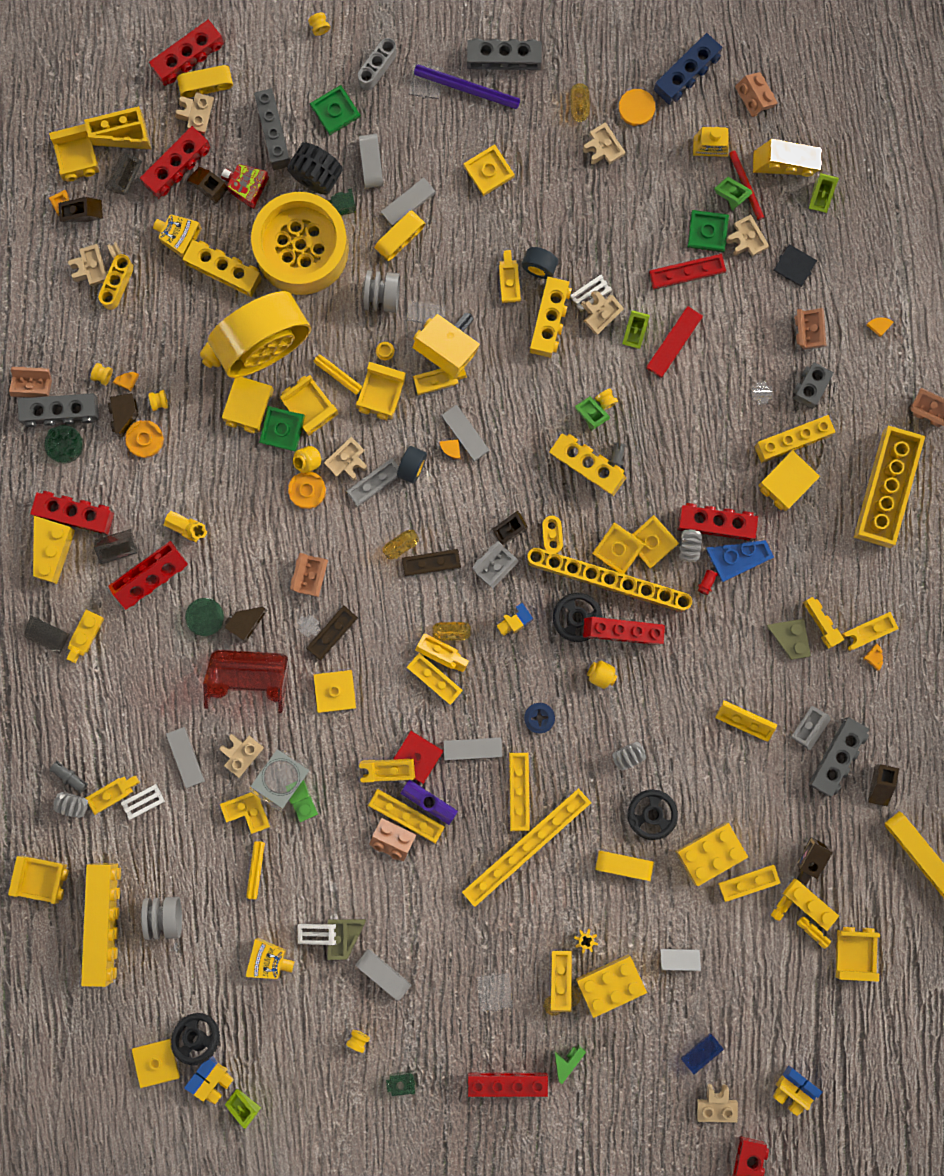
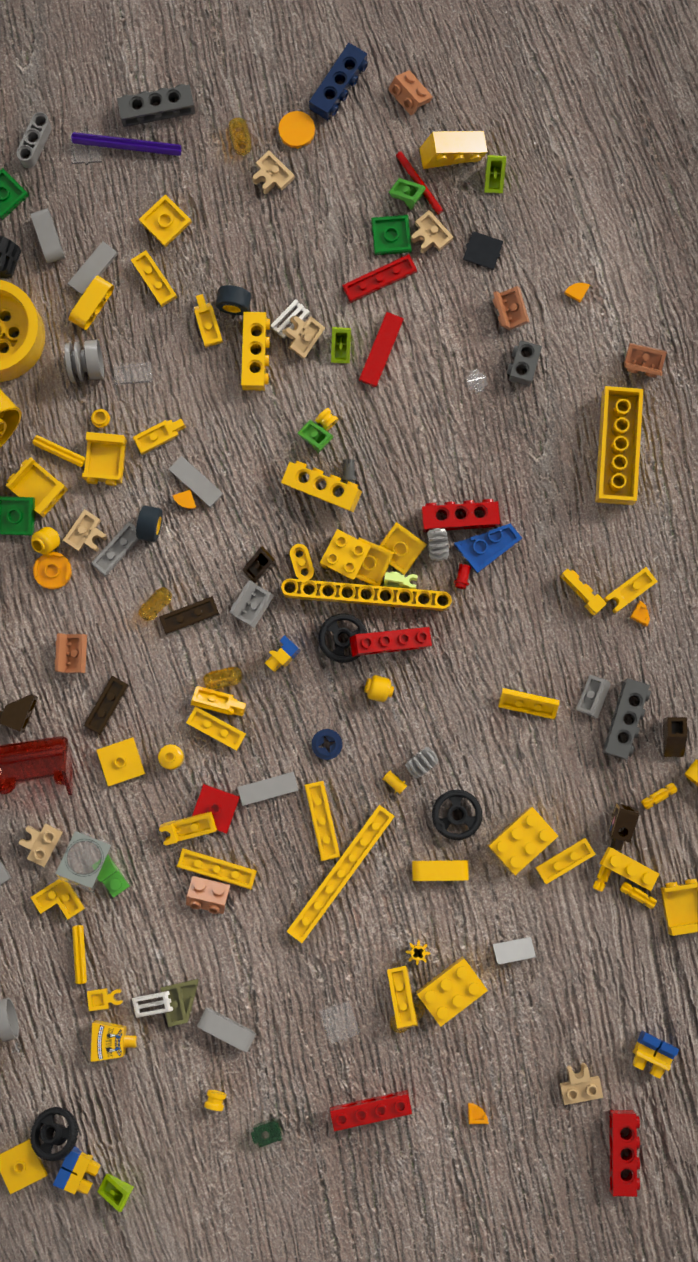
camera: 10 degrees left, 0 degrees up
(267, 918) = (100, 999): none -> yellow plate
(308, 625) = (81, 703): clear gear -> none
(343, 202) = (29, 282): clear green brick -> none
(385, 697) = (170, 757): none -> yellow head
(418, 794) = (248, 854): dark purple piece -> none
(446, 343) = (158, 398): yellow piece -> none
(466, 224) = (153, 278): none -> yellow plate
(565, 1067) = (424, 1080): bright green slope -> none
(597, 536) = (345, 554): none -> yellow bracket
(598, 769) = (397, 784): none -> yellow pin
(609, 1112) = (476, 1114): none -> light orange tile
(641, 572) = (397, 580): none -> yellowish green plate
(702, 1053) = (554, 1037): clear blue plate -> none
(711, 142) = (376, 147): yellow torso -> none
(788, 481) = (520, 461): yellow panel -> none
(792, 638) = (556, 613): olive wing -> none
(794, 439) = (517, 419): yellow brick -> none
(855, 839) = (659, 795): none -> yellow axle

